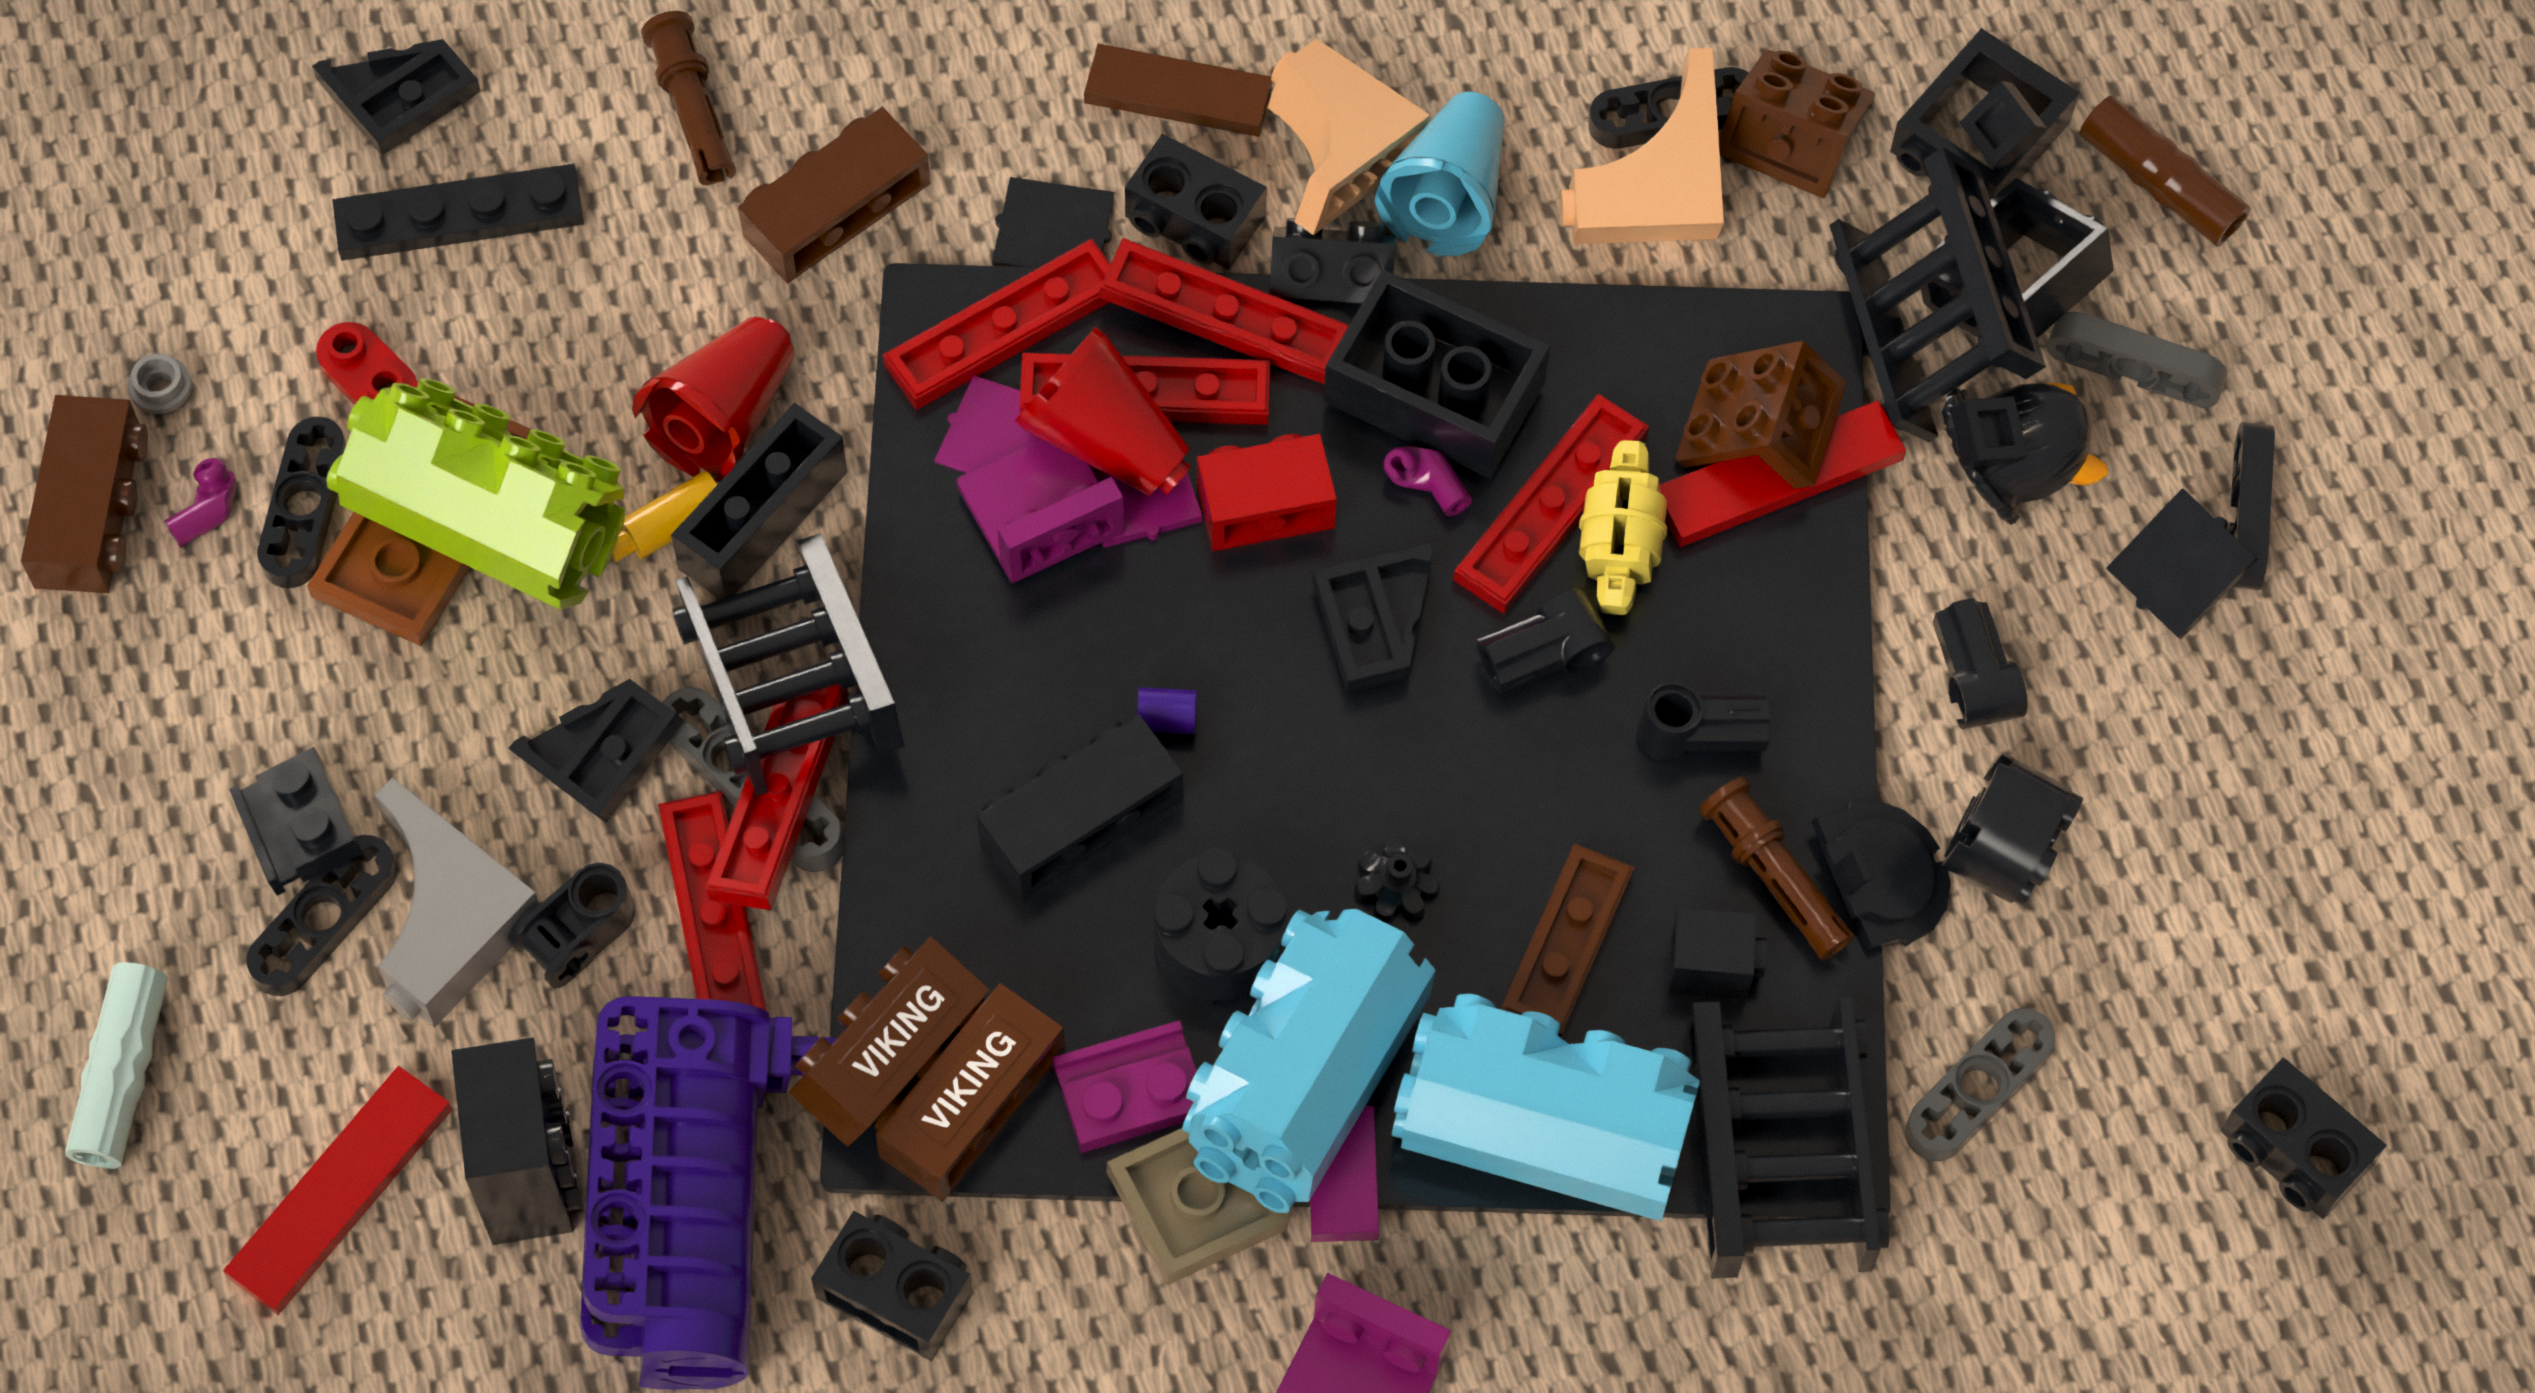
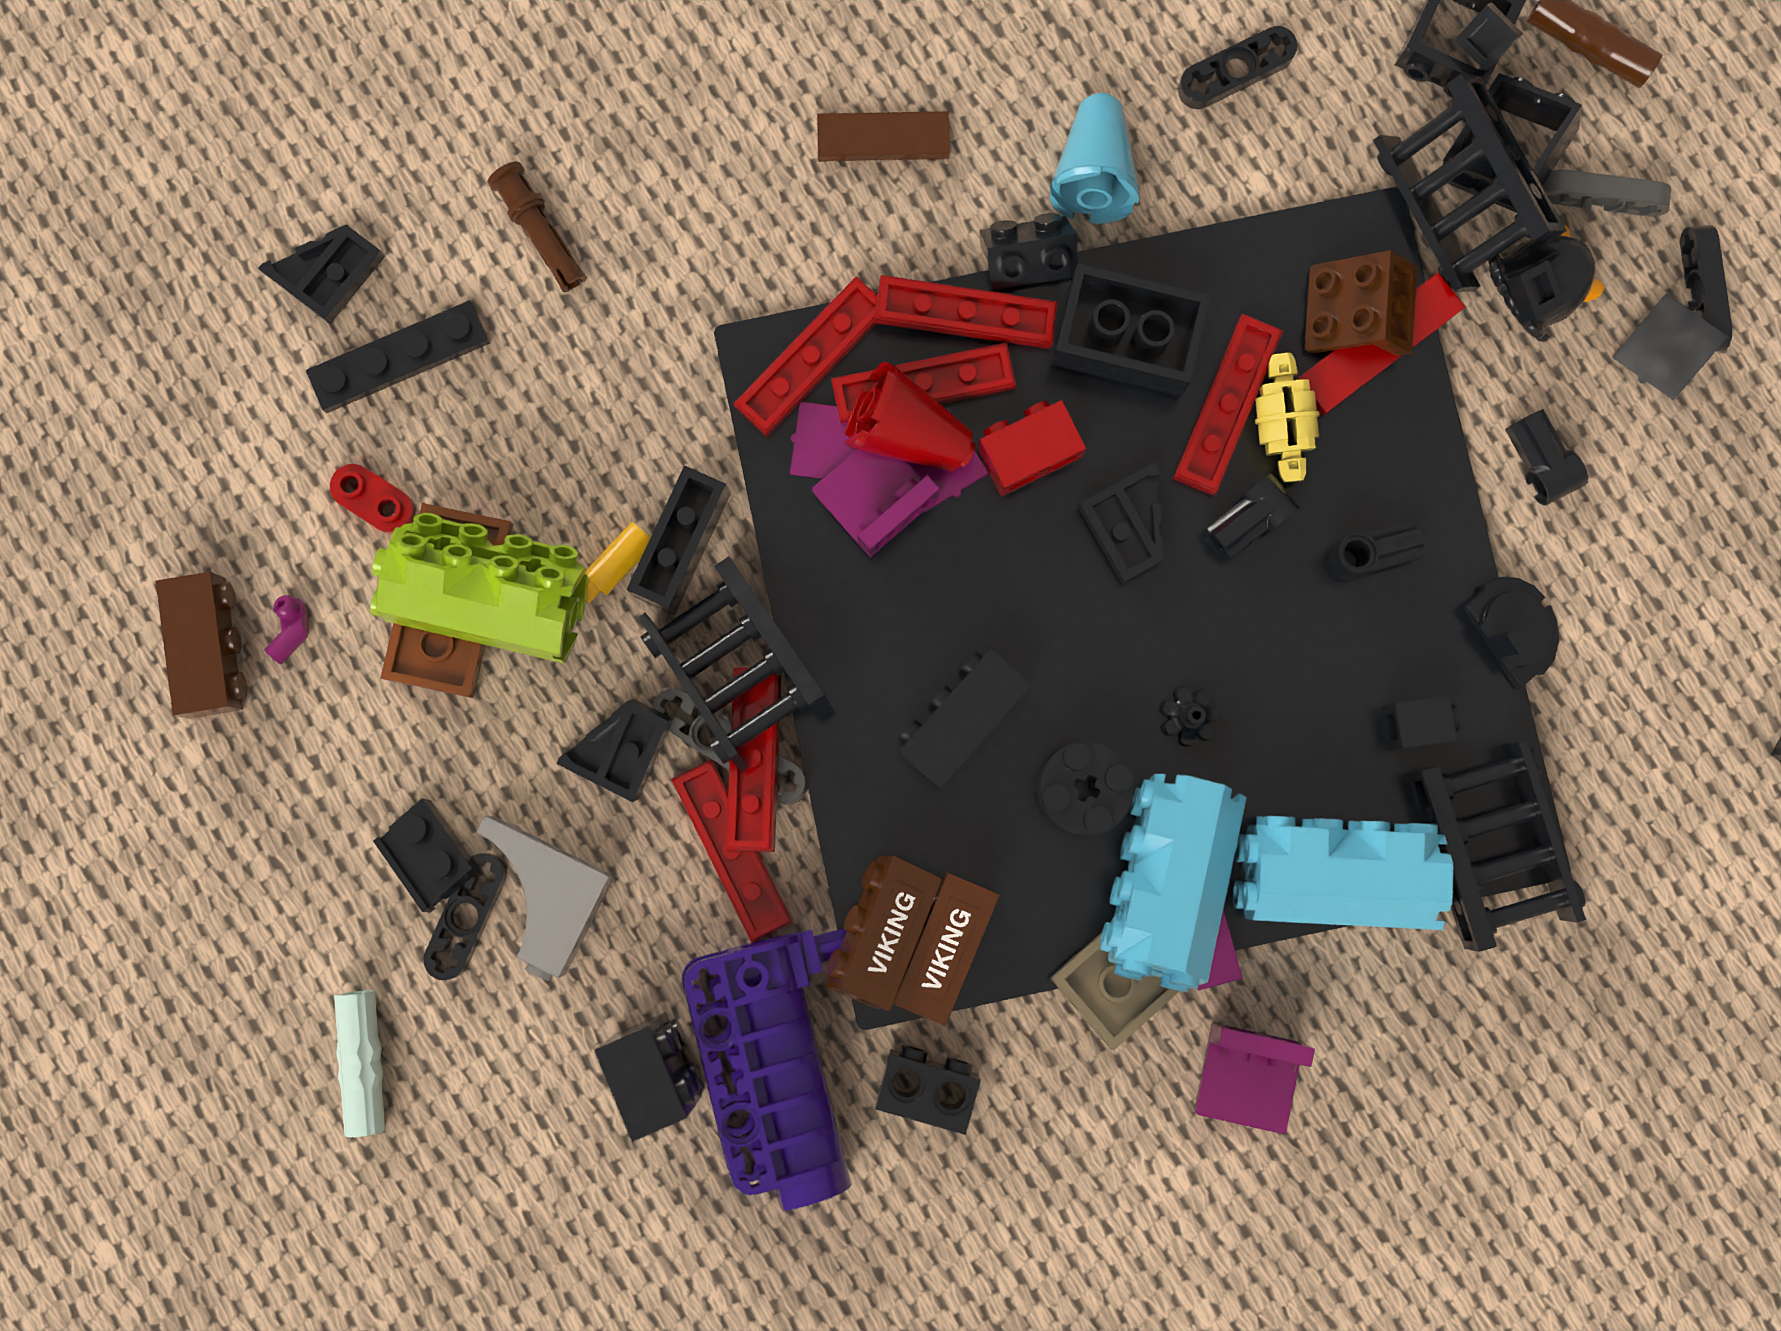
camera: 15 degrees left, 20 degrees up
(154, 369) = (216, 537): light grey plate -> none
(291, 479) = (341, 599): black beam -> none
(337, 1190) = (536, 1110): red tile -> none
(573, 927) = (635, 890): black piece -> none
(716, 397) = (626, 463): red cone -> none
(834, 194) = (662, 280): reddish brown brick -> none
(1048, 221) = (820, 265): black piece -> none
(1127, 1085) = (1049, 911): magenta plate -> none
(1168, 709) = (1003, 630): dark purple hinge -> none
(1202, 193) = (925, 216): black brick -> none
(1347, 125) = (1015, 140): light nougat arch -> none
(1428, 472) = (1138, 402): magenta arm -> none
(1569, 936) = (1315, 733): reddish brown tile -> none
(1667, 185) = (1256, 129): light nougat arch -> none
(1761, 846) = (1433, 634): reddish brown pin -> none
(1793, 121) = (1327, 59): reddish brown bracket -> none
(1997, 1040) = (1627, 762): dark grey beam -> none
(2011, 830) = (1600, 581): black brick -> none

